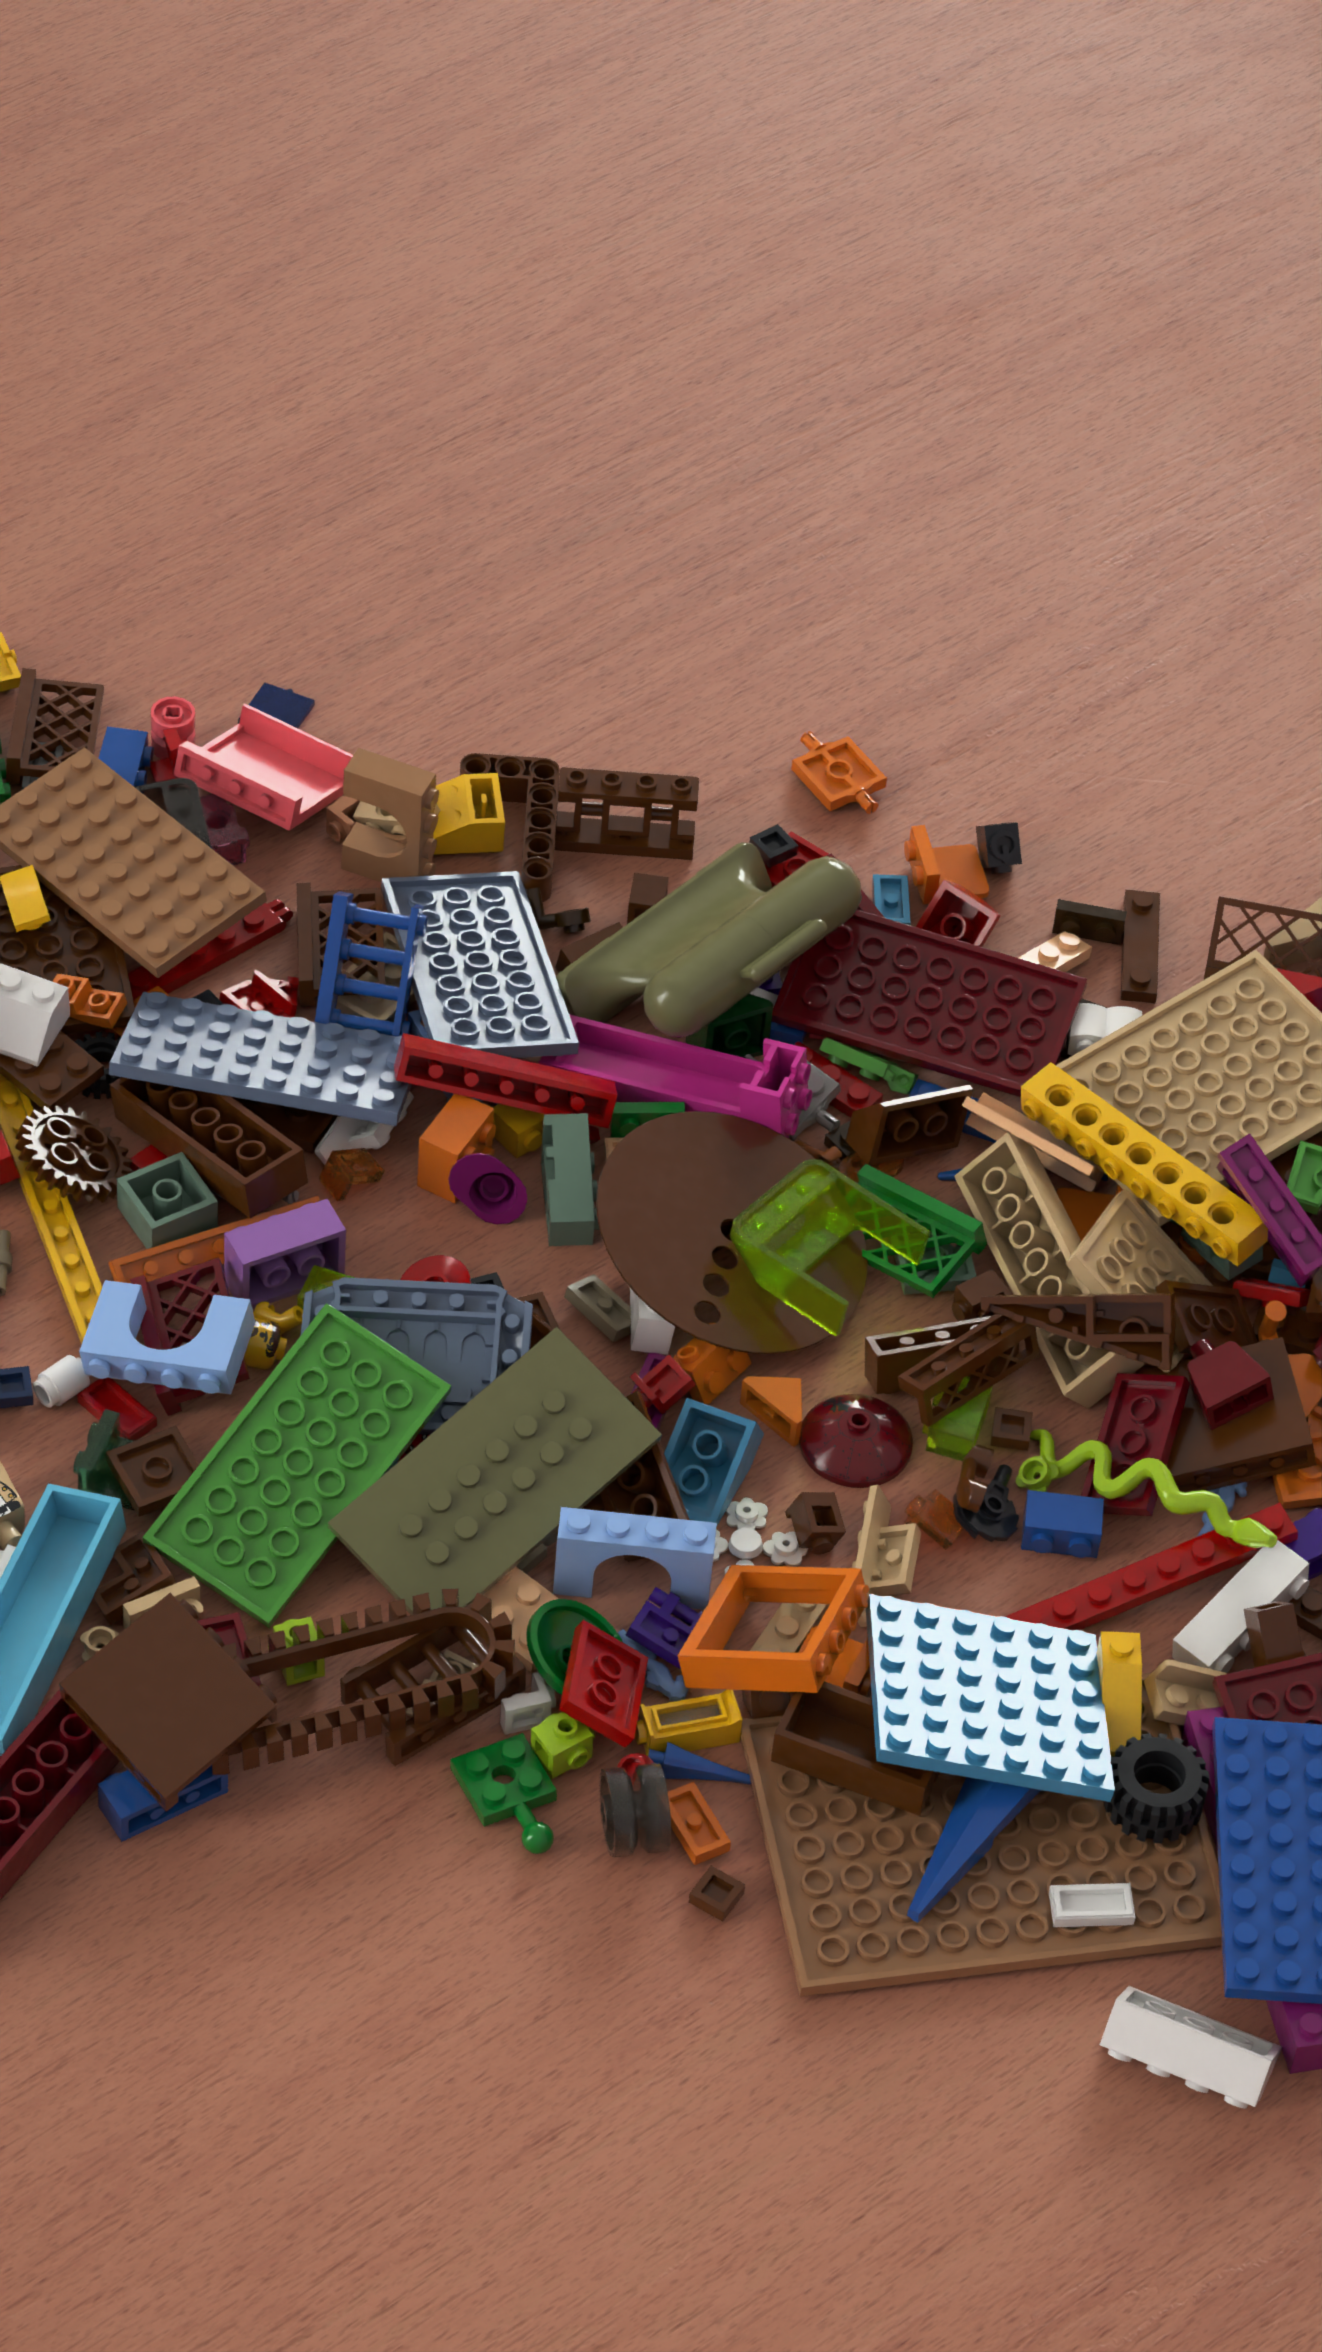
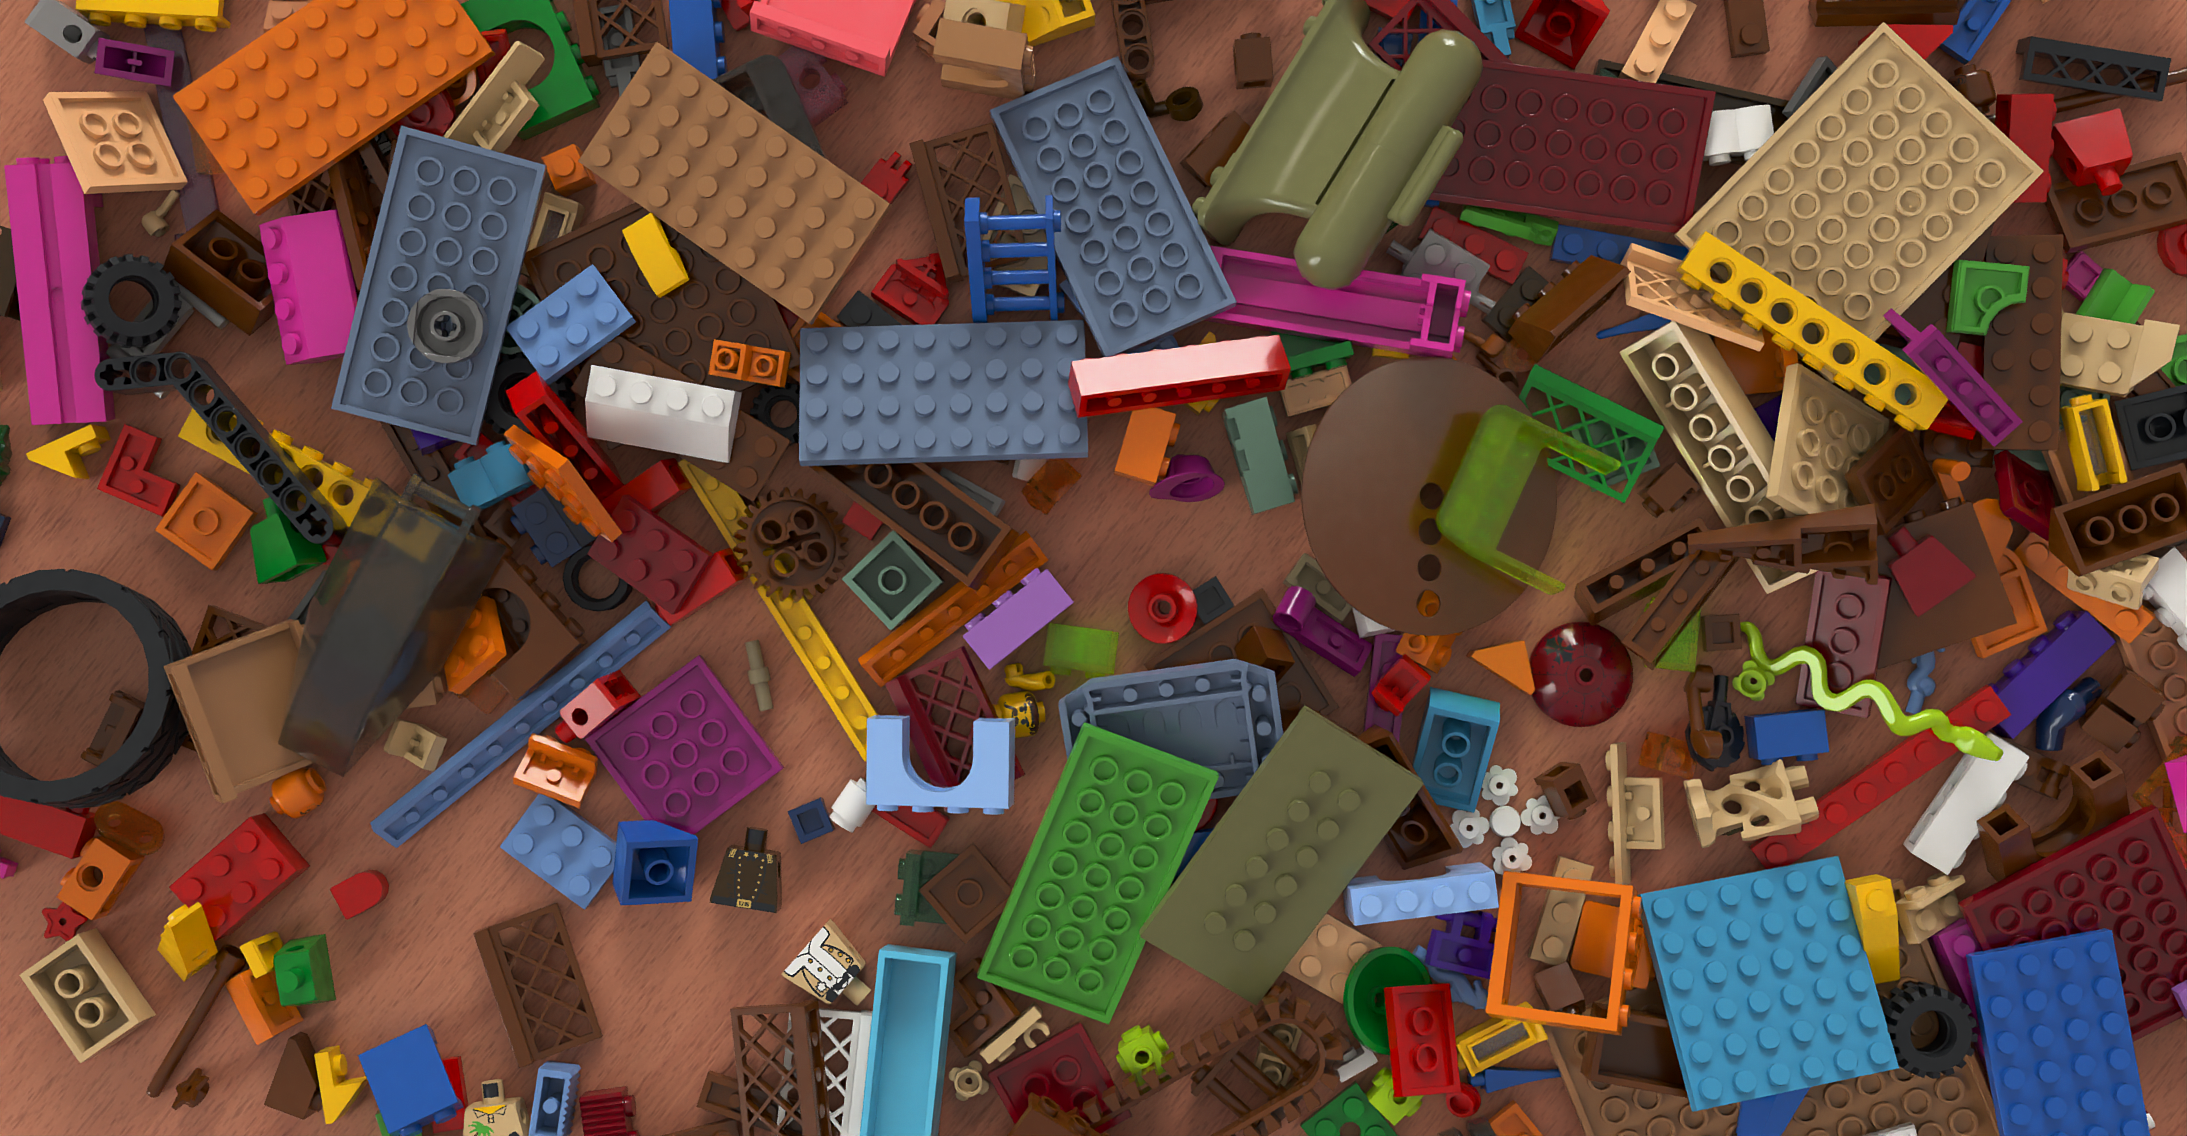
camera: 10 degrees left, 40 degrees up
(588, 1337) = (1320, 632): none -> magenta plate
(1007, 1570) = (1771, 801): none -> tan hips

